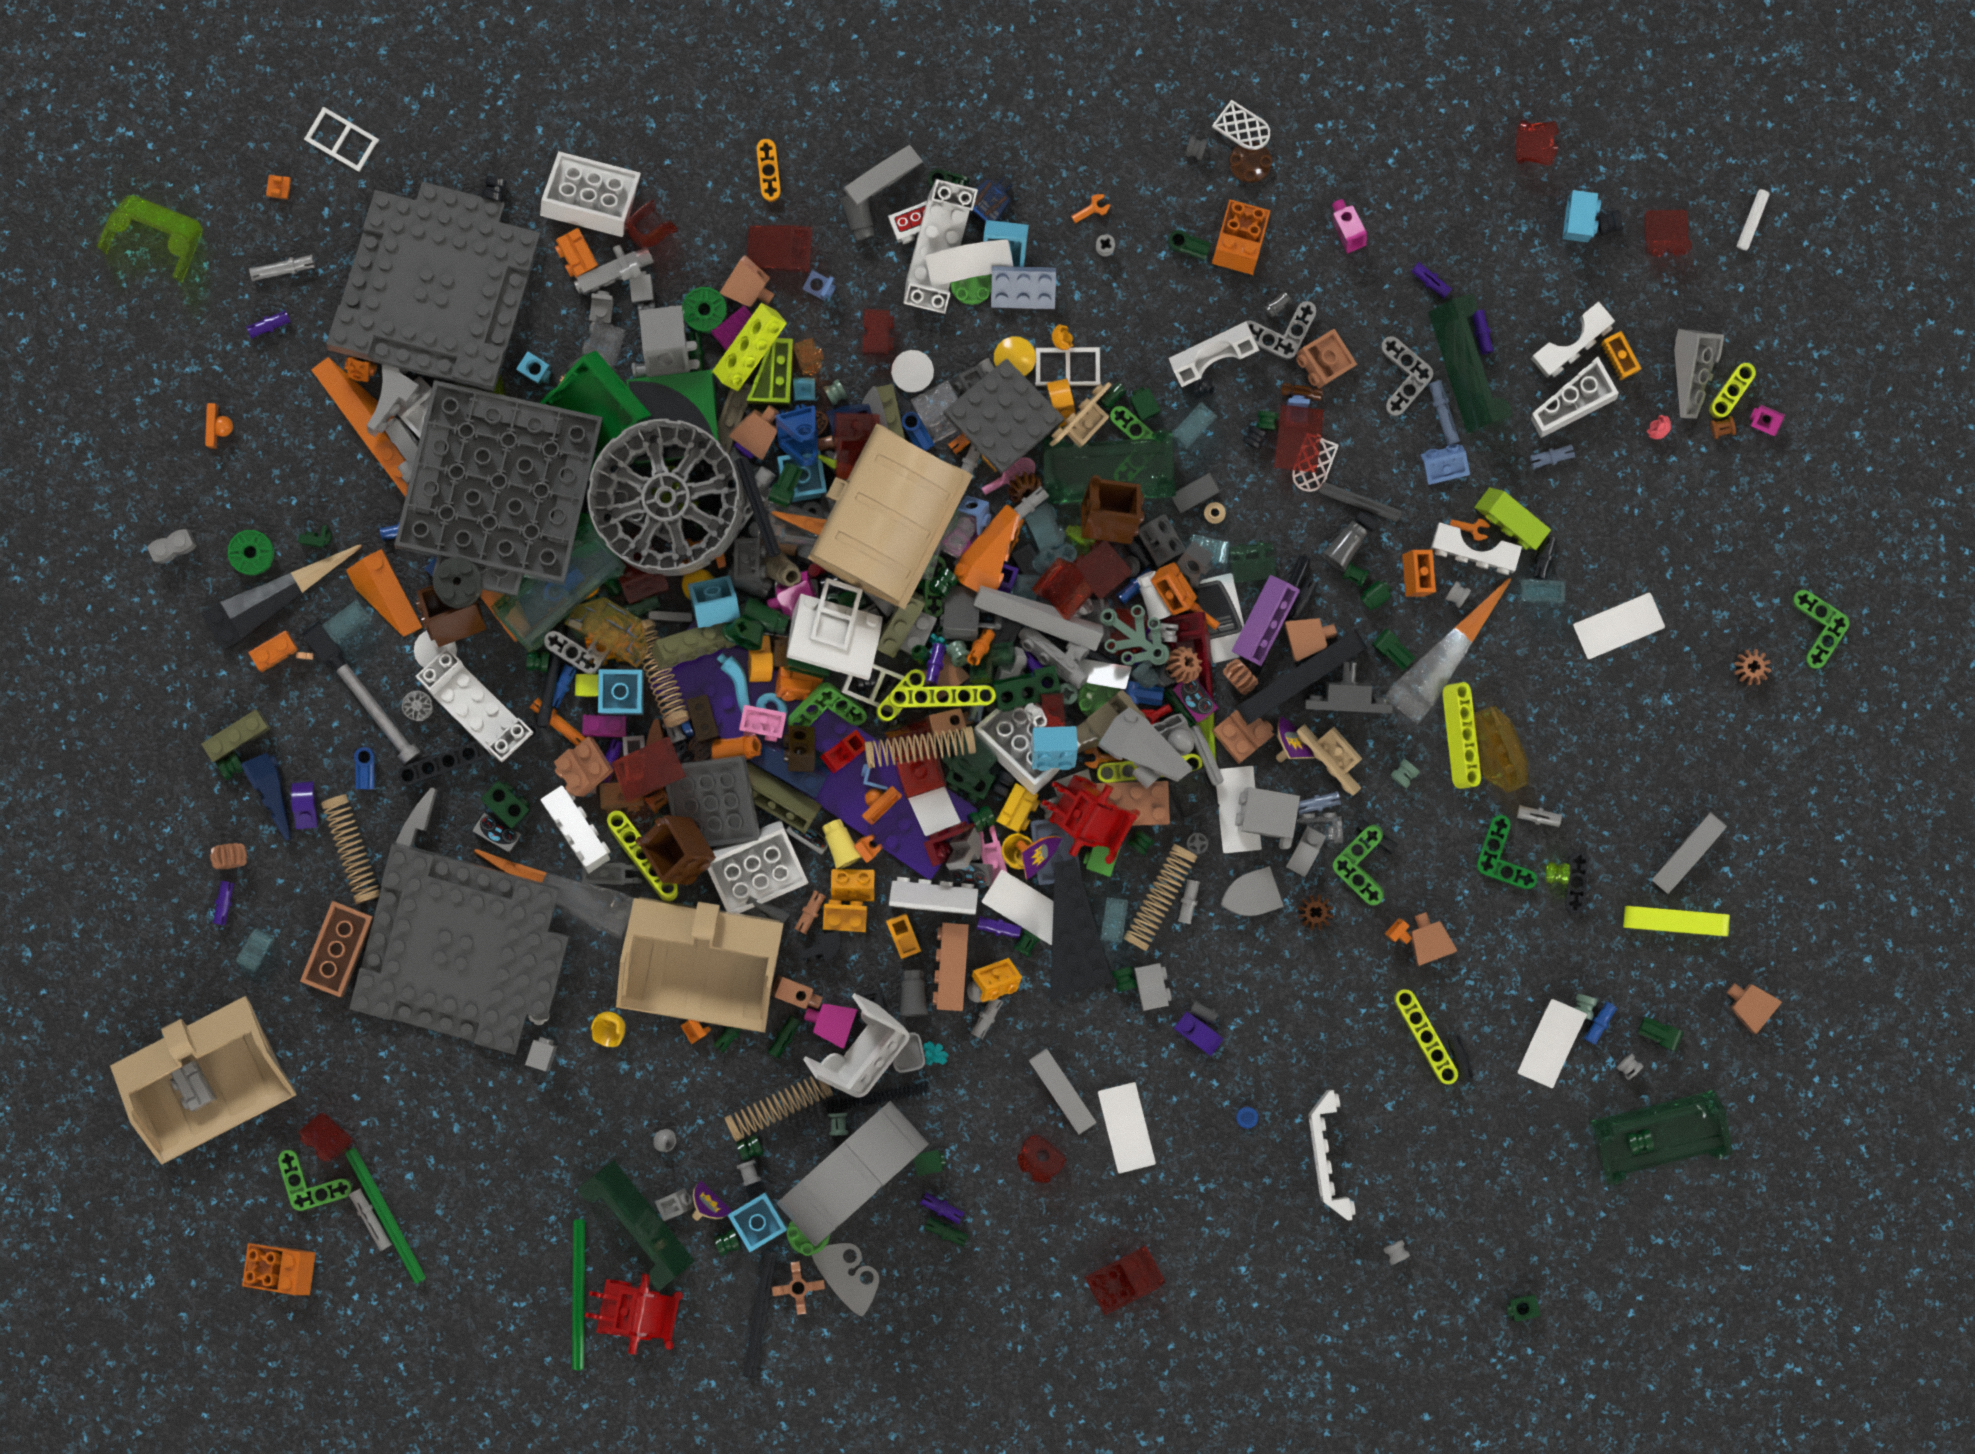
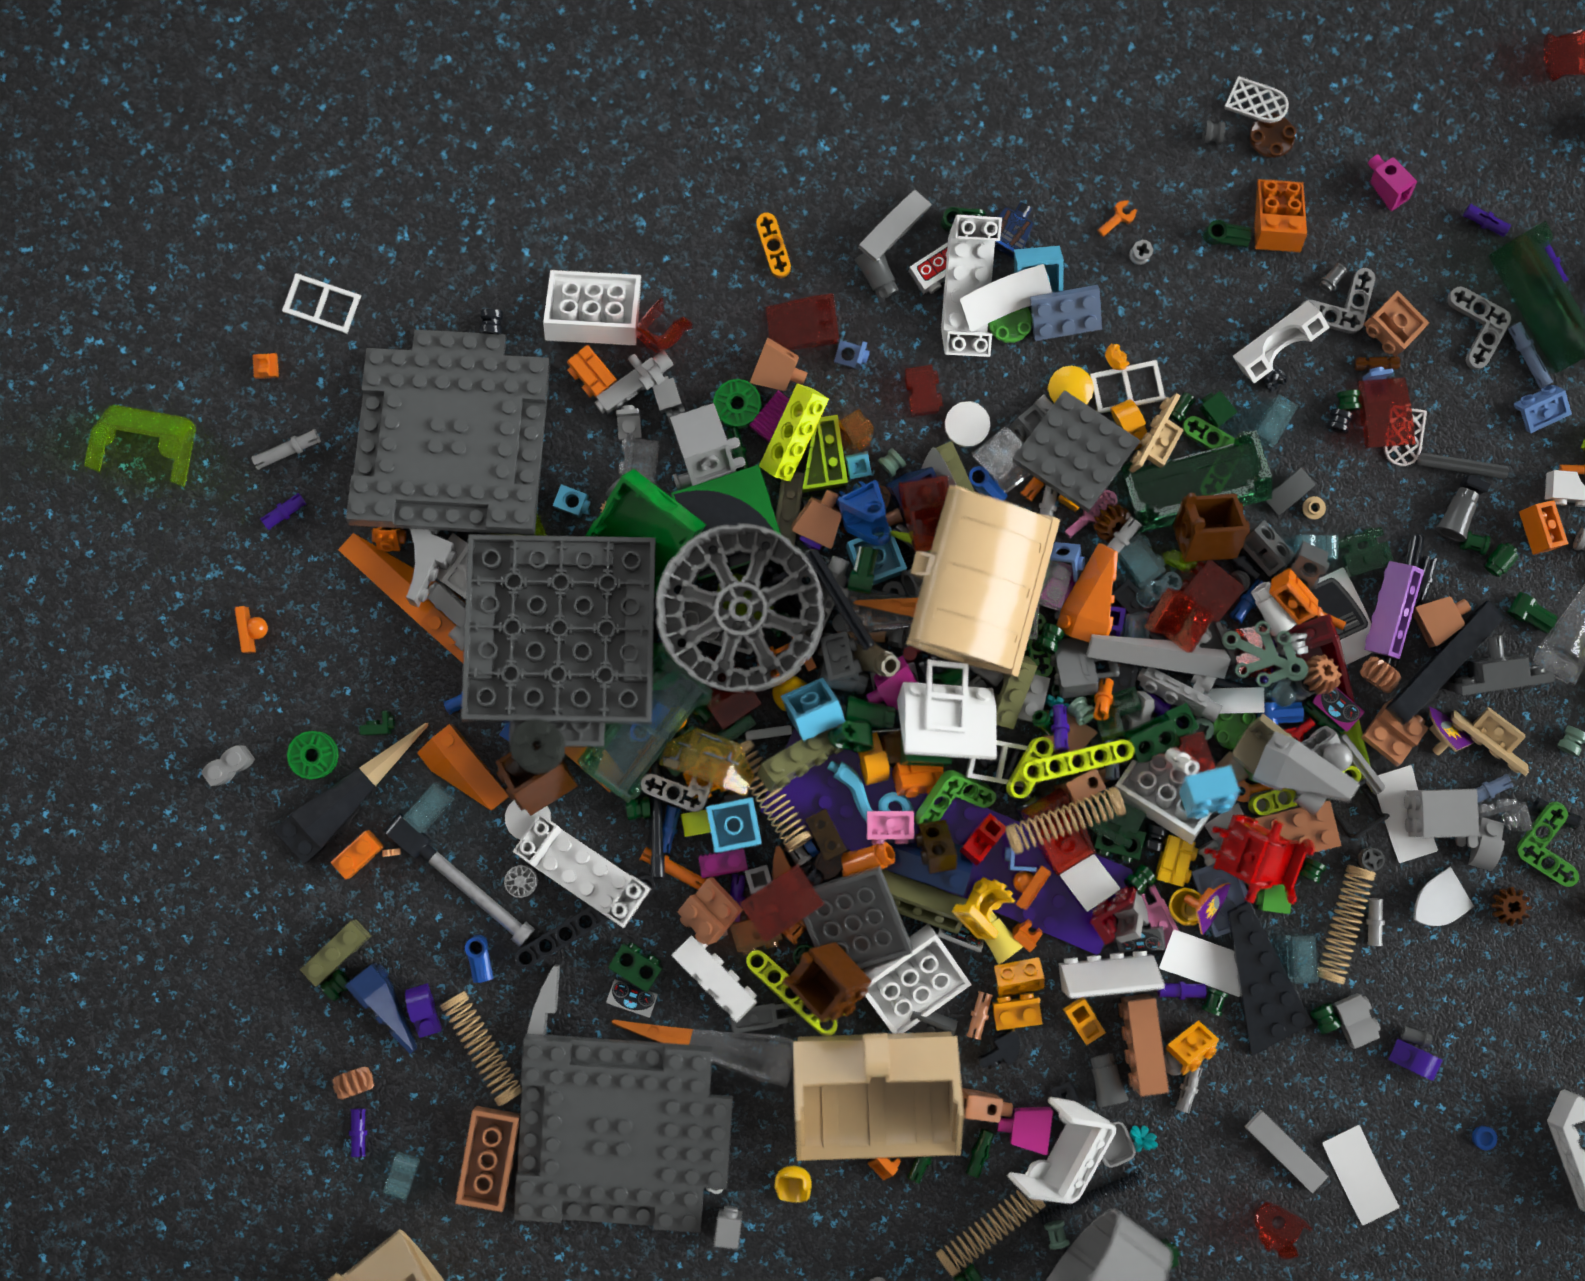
camera: 10 degrees left, 0 degrees up
(842, 806) = (976, 917): none -> yellow tile

